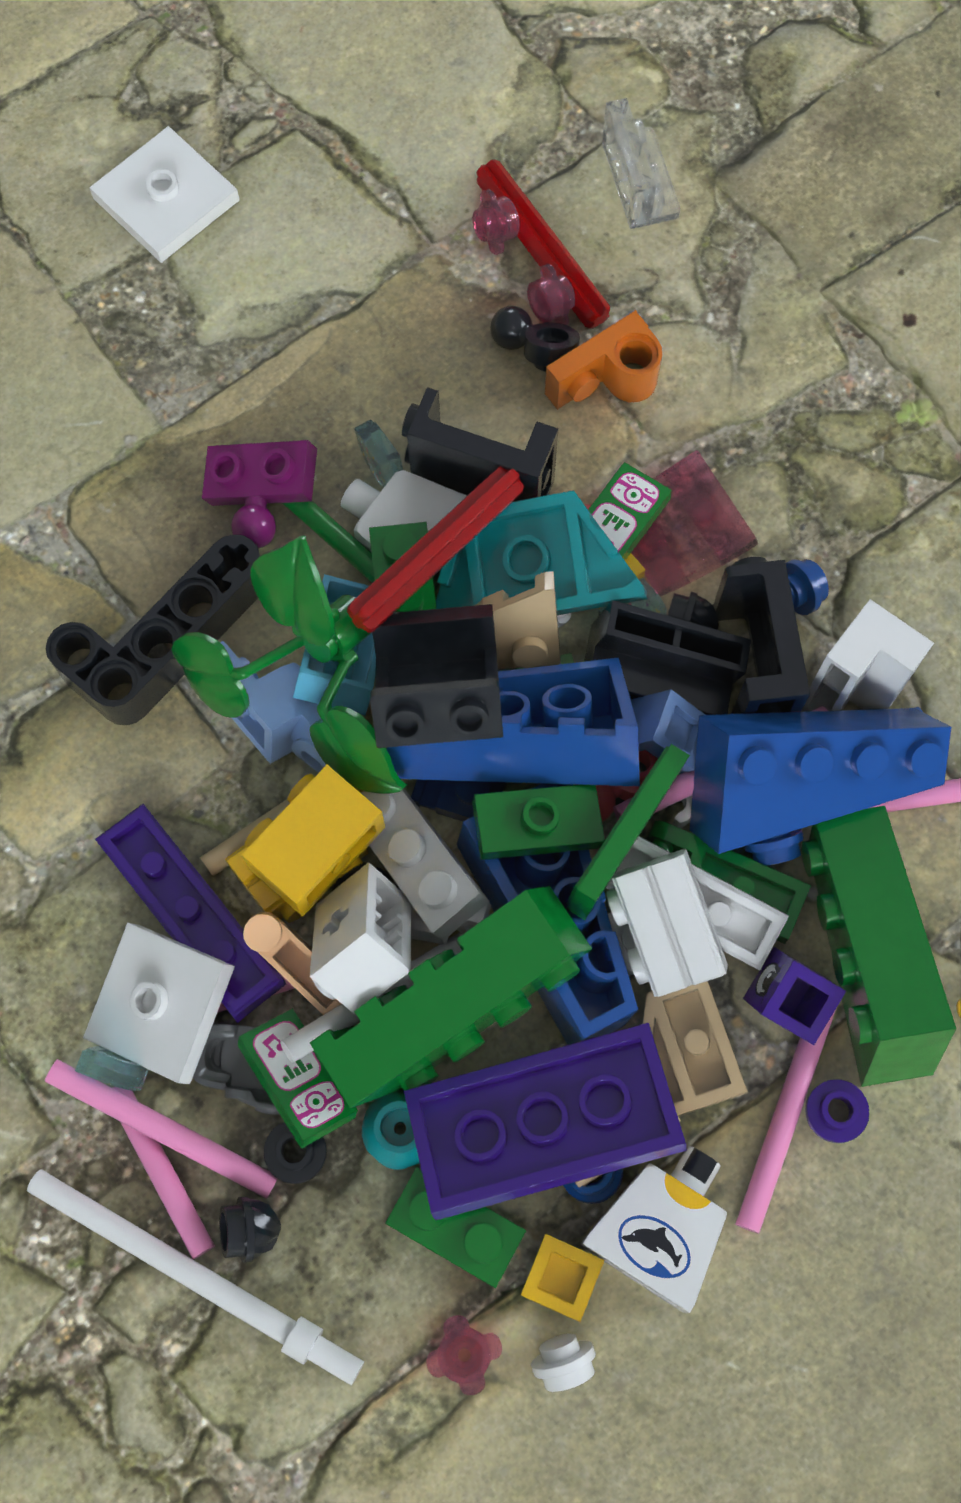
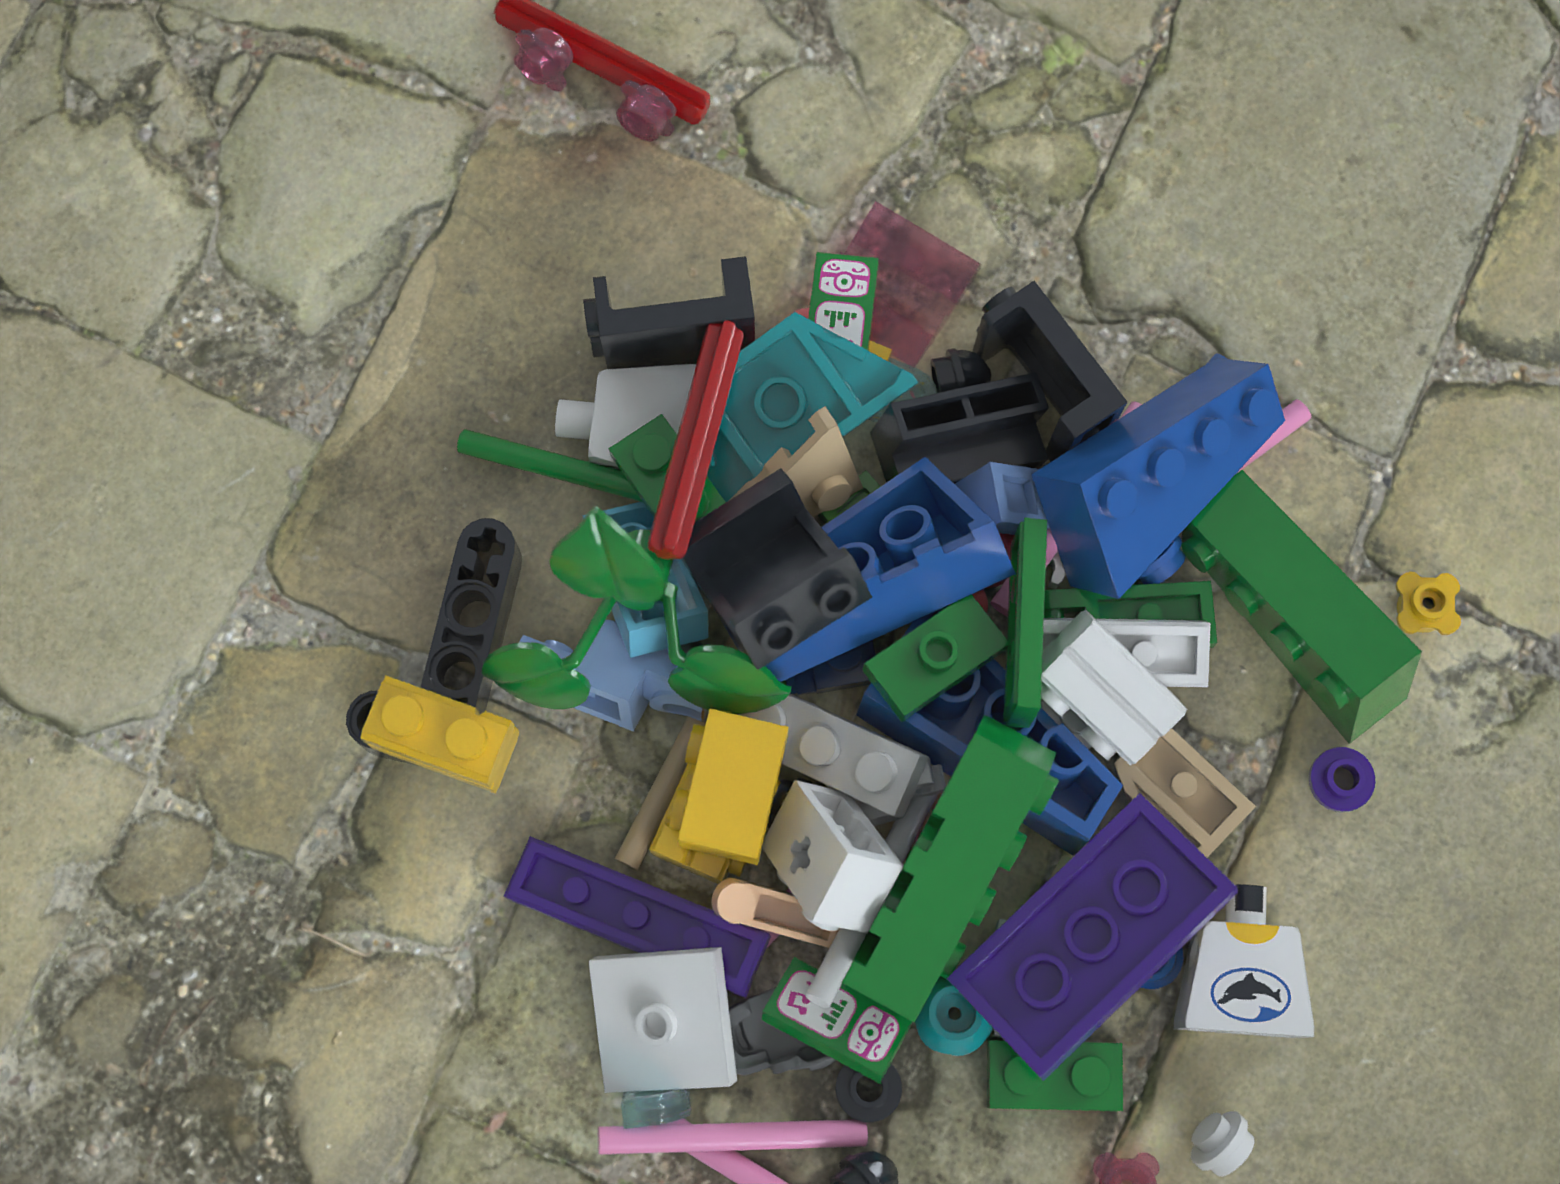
camera: 30 degrees left, 5 degrees up
(108, 678) = (440, 734): none -> yellow brick
(164, 194) = (179, 193): white plate -> none
(258, 476) = (455, 449): magenta plate -> none
(378, 452) = (565, 363): clear light blue tile -> none
(543, 342) = (669, 163): black plate -> none
(562, 1277) = (1178, 1068): yellow plate -> none
(604, 360) = (733, 153): orange plate -> none
(780, 1133) = (1296, 803): bright pink bar -> none
(794, 995) = (1252, 694): dark purple brick -> none
(807, 585) = (1055, 282): blue plate -> none
(868, 662) = (1161, 339): white piece -> none

